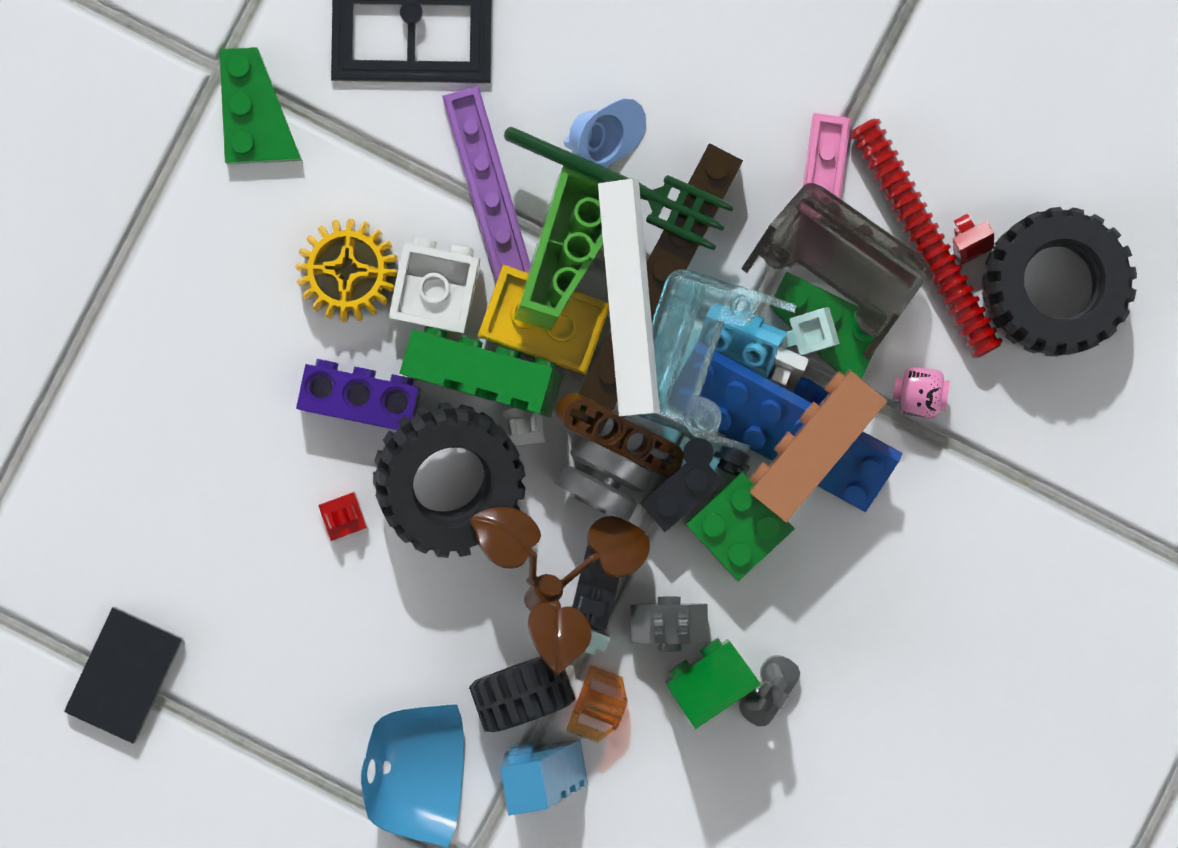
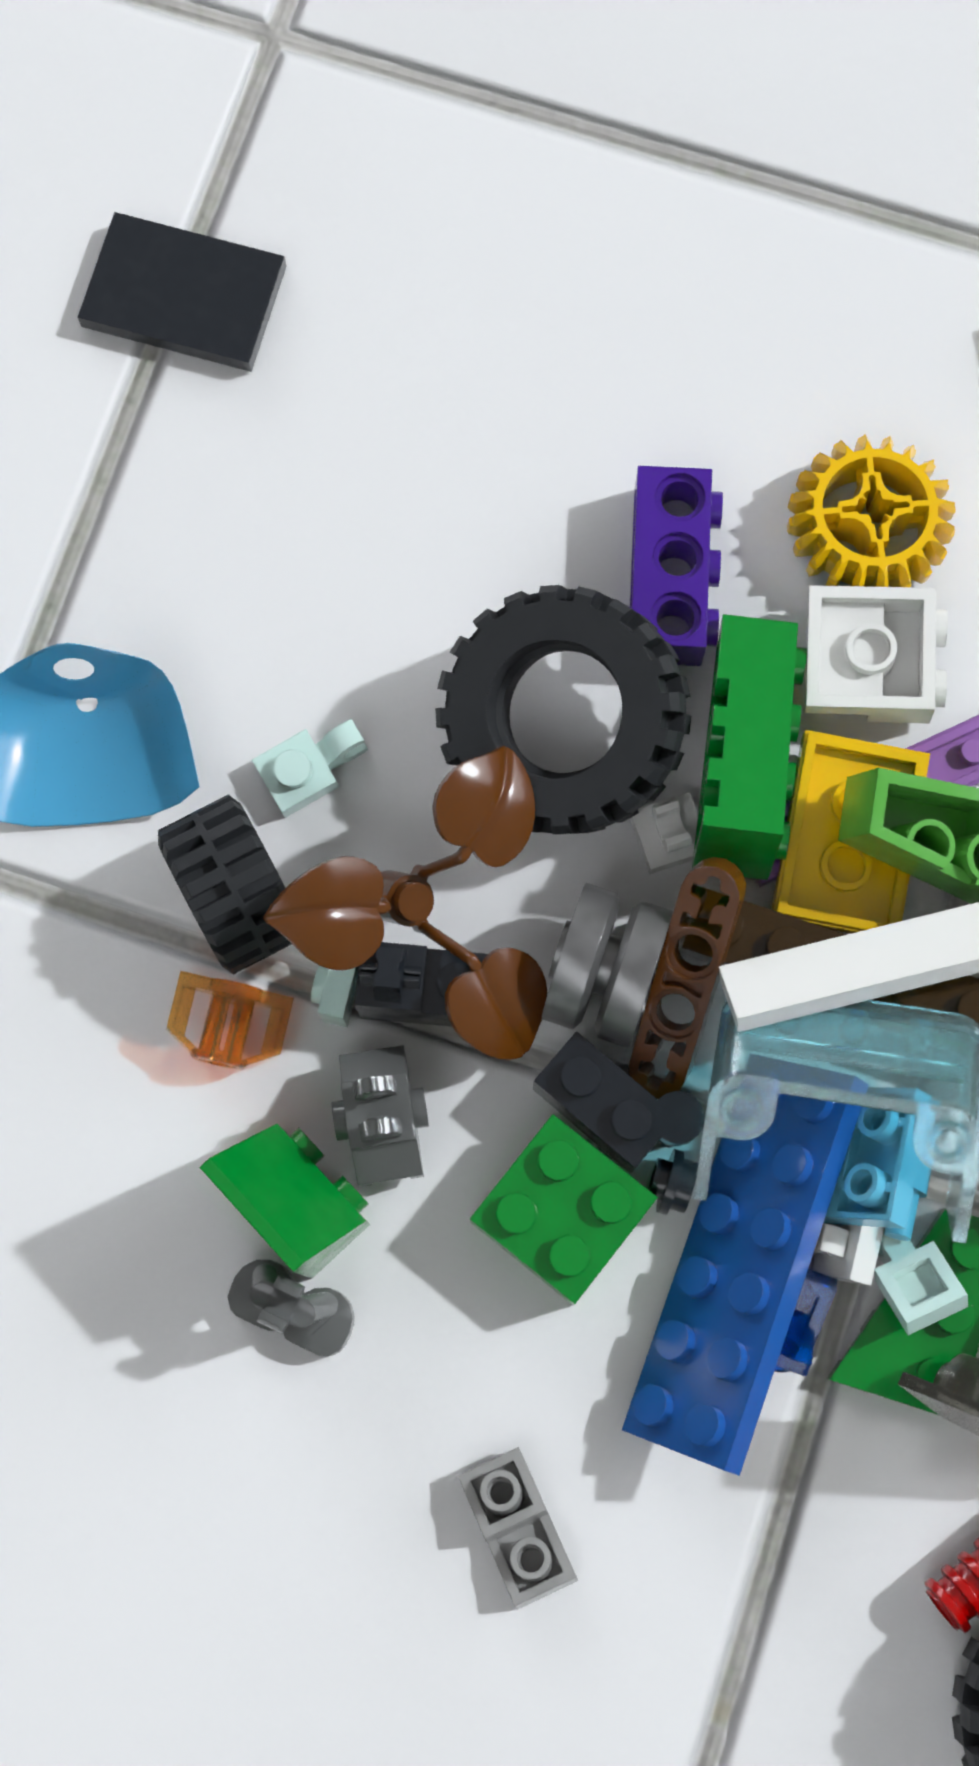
camera: 85 degrees right, 10 degrees down
(343, 516) = (477, 575): red tile -> none
(450, 641) = (301, 770): none -> light aqua plate
(541, 774) = (92, 924): dark azure wedge -> none
(817, 444) = (731, 1314): nougat brick -> none
(910, 579) = (517, 1528): none -> light grey slope
(921, 392) = (848, 1497): bright pink head -> none

